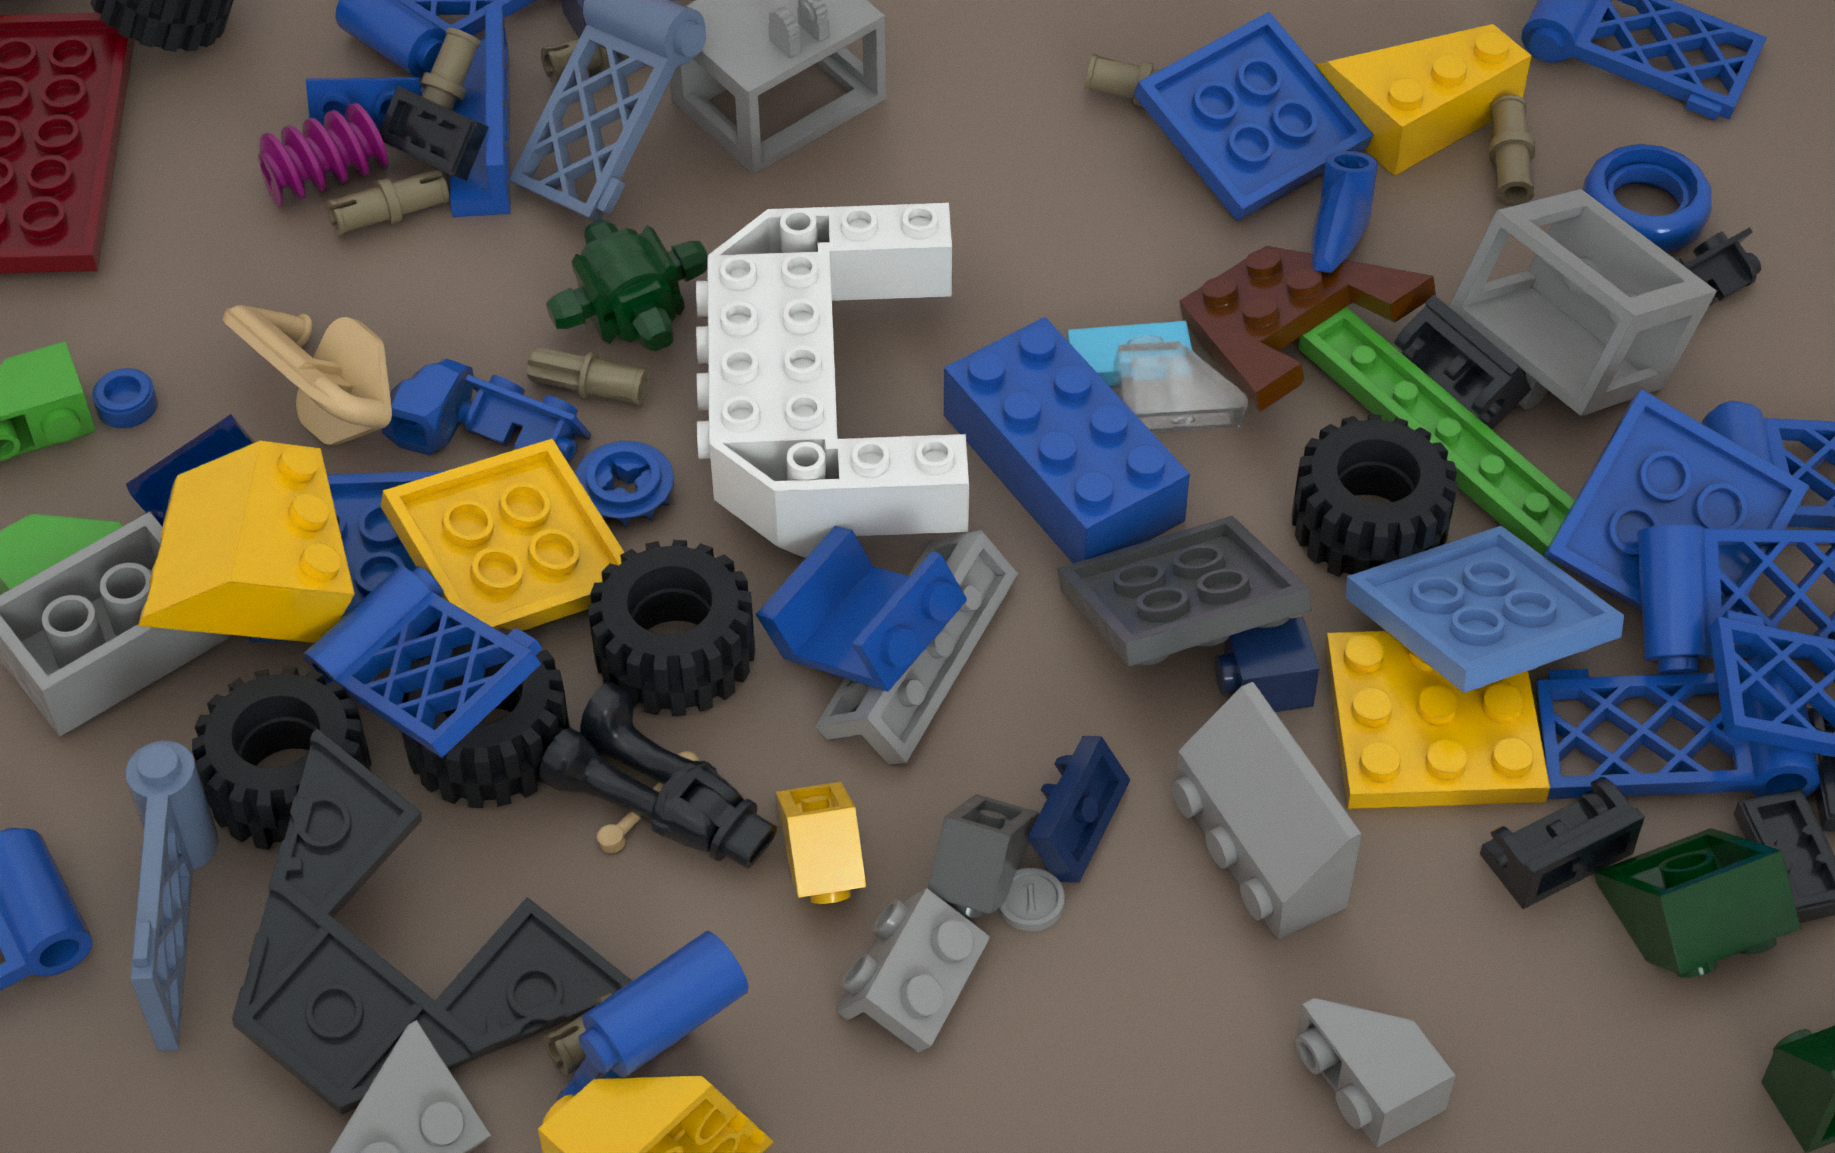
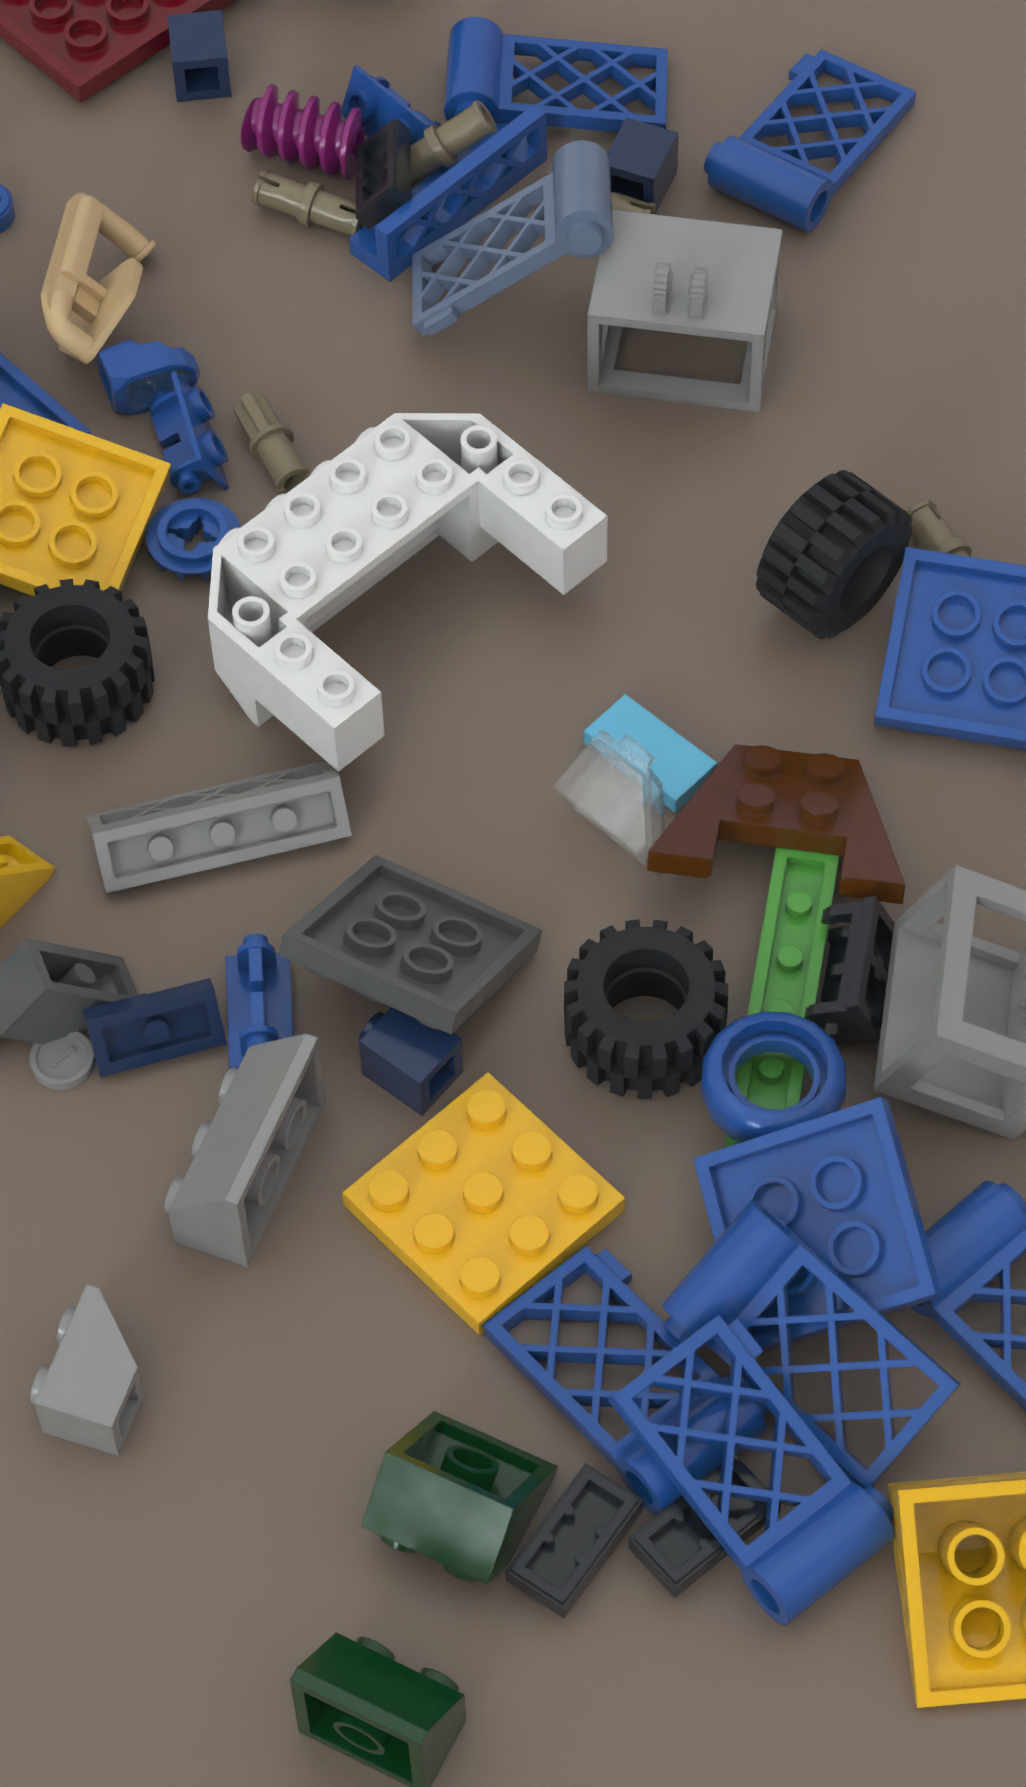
camera: 50 degrees right, 5 degrees up
(157, 166) = (199, 56): none -> dark blue brick
(628, 285) = (363, 388): dark green piece -> none
(859, 617) = (190, 757): blue panel -> none
(1065, 443) = (493, 771): blue brick -> none
(1101, 122) = (834, 554): none -> black tyre
(1138, 743) = (257, 997): none -> blue hinge
(1343, 207) = (937, 785): blue piece -> none
(1483, 608) = (594, 1154): medium blue plate -> none
(1532, 425) = (770, 1033): none -> blue wheel
(1565, 844) = (430, 1370): black hinge -> none

